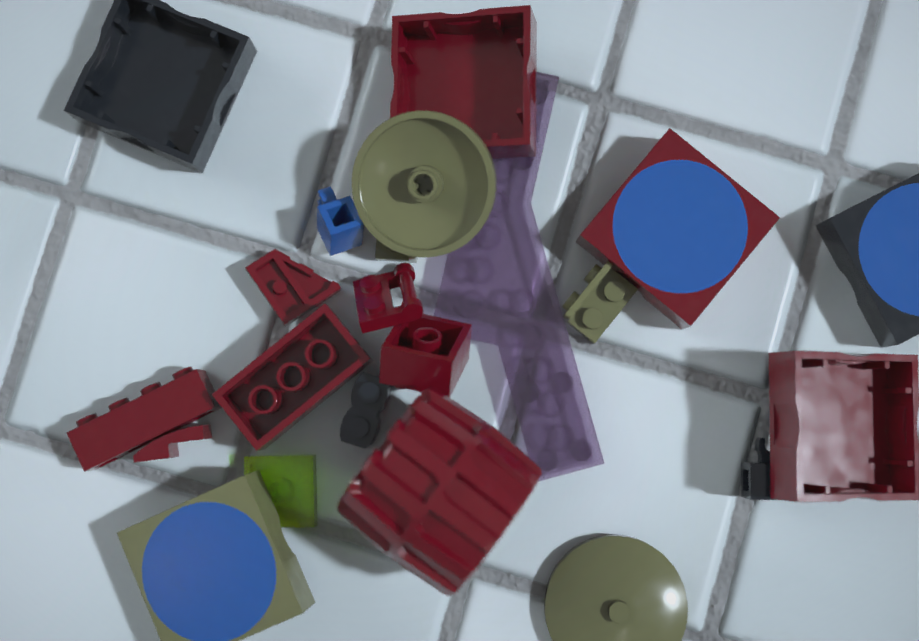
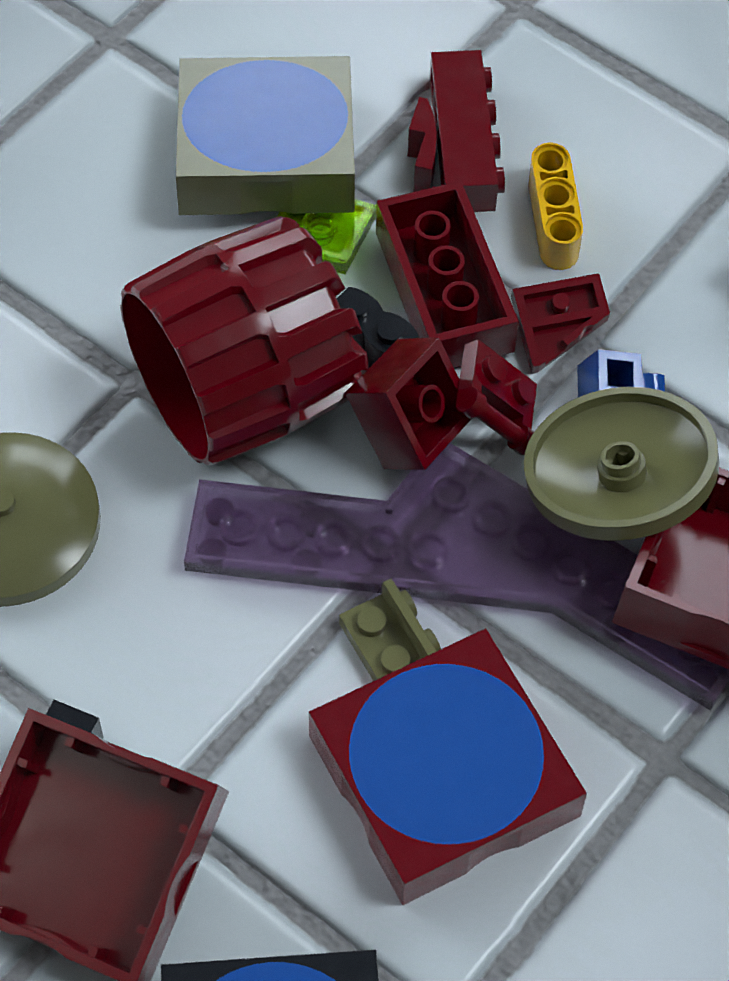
camera: 110 degrees right, 25 degrees down
(174, 323) = (555, 206): none -> yellow beam

